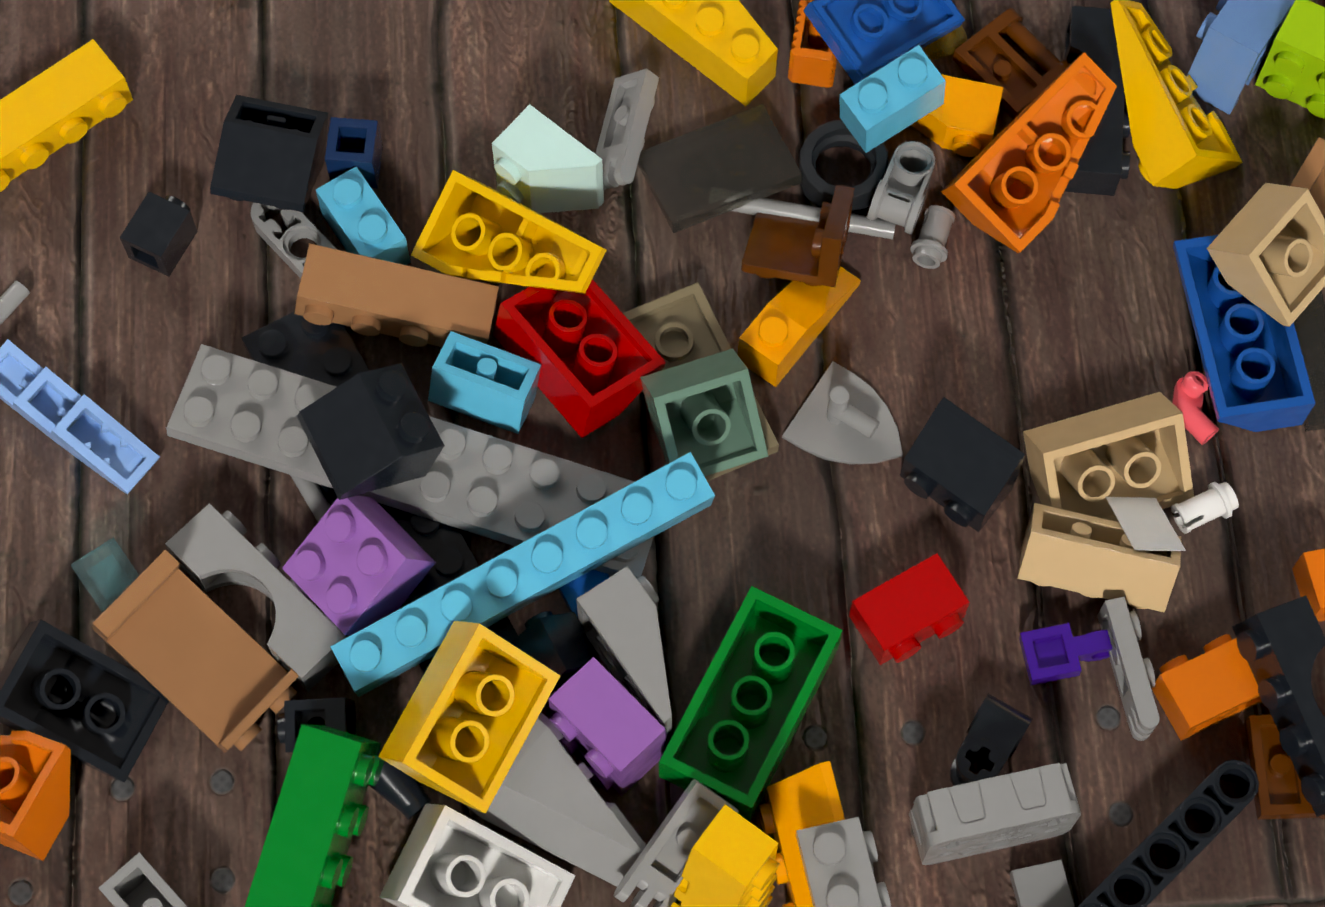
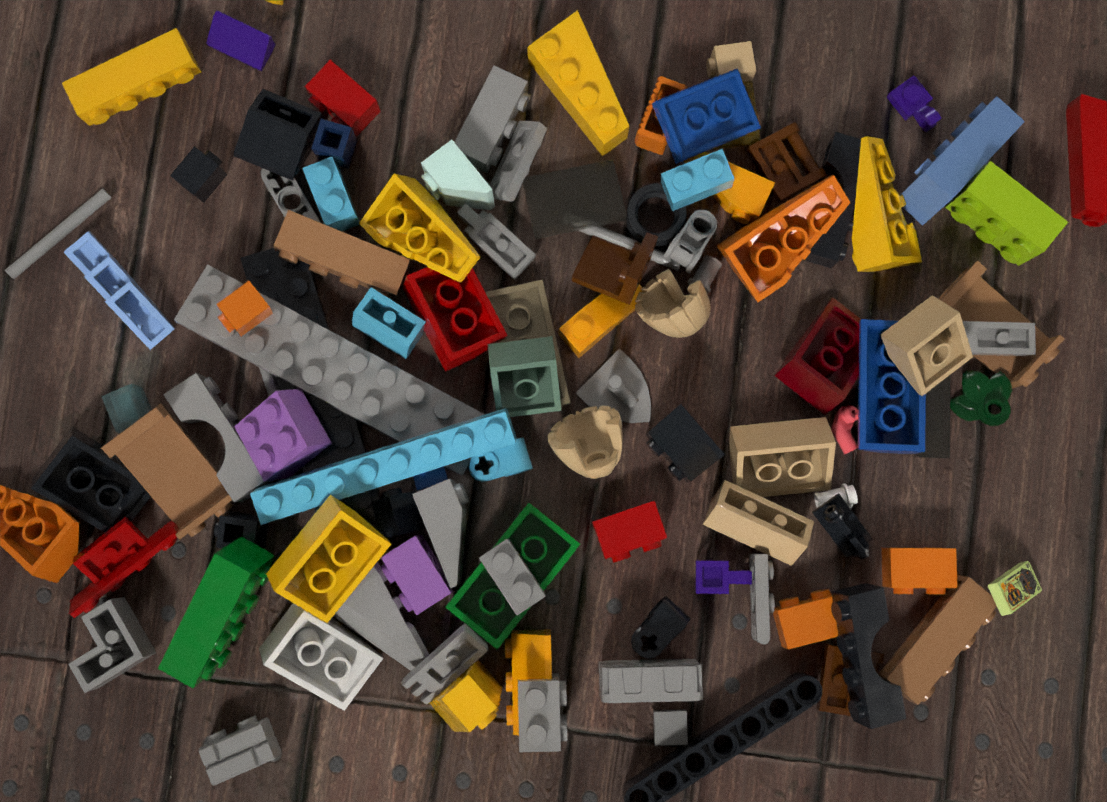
camera: 10 degrees right, 15 degrees up
(129, 802) = (115, 558): none -> red bracket
(185, 45) = (240, 41): none -> dark purple slope
(272, 388) = (243, 309): none -> orange brick
(351, 88) = (341, 98): none -> red brick
(371, 432) = (301, 354): black slope -> none
(578, 72) = (493, 118): none -> light grey brick
(629, 247) = (496, 241): none -> light grey hinge
(699, 545) = (505, 462): none -> medium azure piece
(753, 686) = (512, 576): none -> light grey brick
(822, 491) = (589, 441): none -> tan hair
(898, 291) = (669, 310): none -> tan hair
(1137, 315) = (825, 358): none -> dark red slope
(1145, 524) = (793, 508): white sticker -> none
(1227, 542) = (844, 527): none -> black hinge

